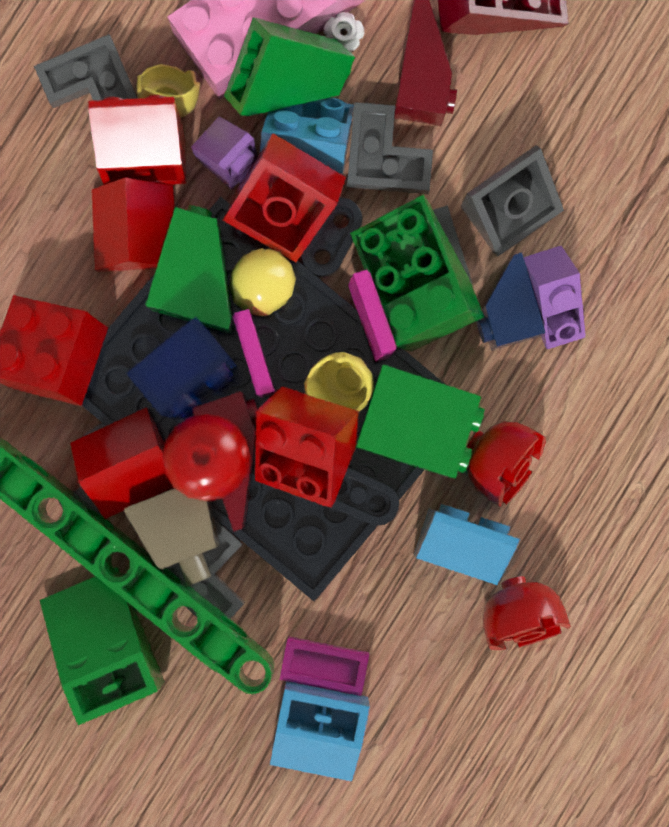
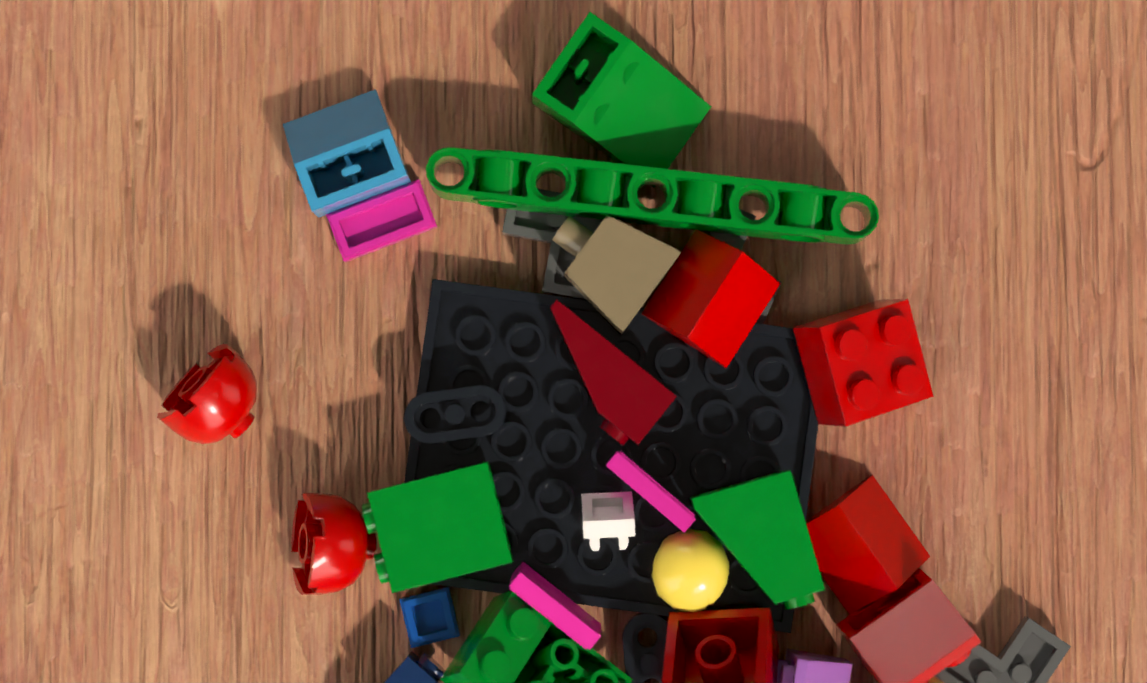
camera: 145 degrees right, 0 degrees up
(183, 370) = (709, 428): clear blue brick -> none
(206, 457) = (630, 356): red cylinder -> none
(295, 354) = (607, 517): none -> white tile
(304, 445) = (540, 430): red slope -> none
(341, 380) = (543, 513): light yellow hair -> none
(464, 365) = (430, 617): none -> blue tile
(464, 546) = (314, 431): dark azure slope -> none

